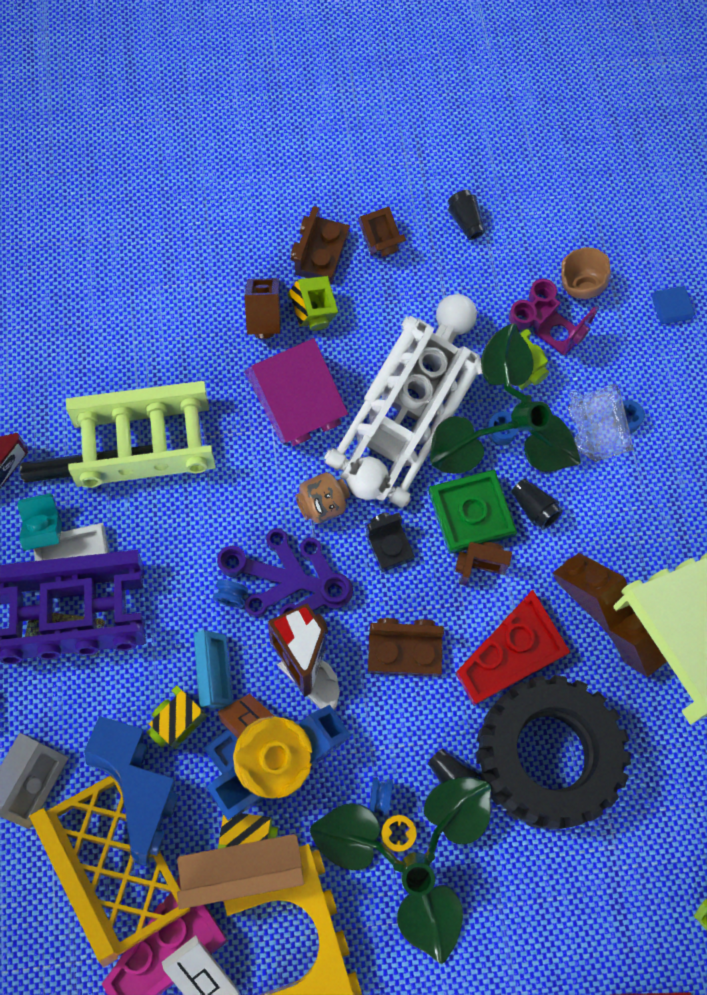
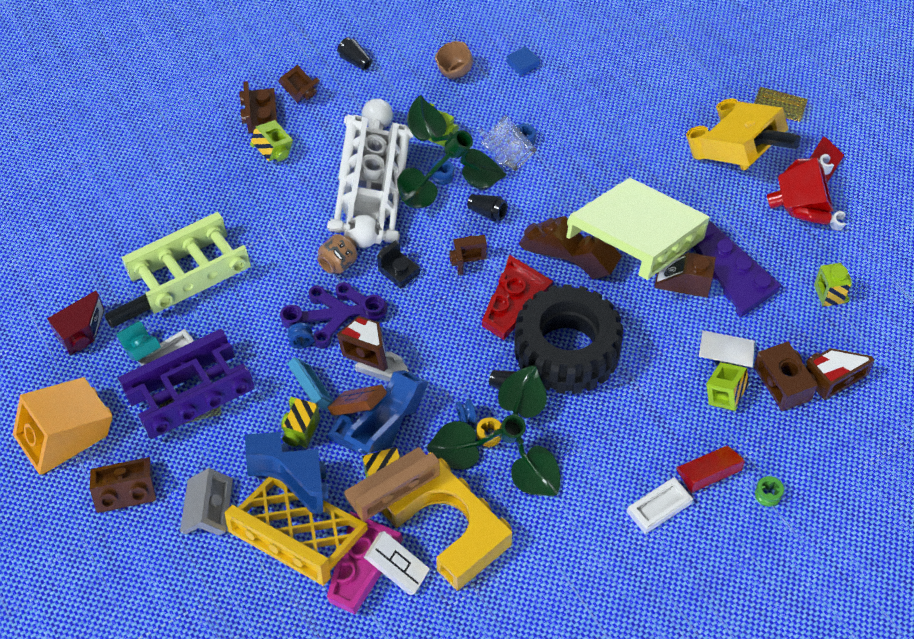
camera: 20 degrees left, 15 degrees down
(262, 307) = (237, 157): reddish brown slope -> none
(272, 757) = (381, 402): yellow tile -> none
(297, 392) = (286, 196): magenta slope -> none
(405, 648) = (439, 322): reddish brown bracket -> none
(472, 511) = (443, 224): green plate -> none
(543, 316) = (434, 92): magenta piece -> none

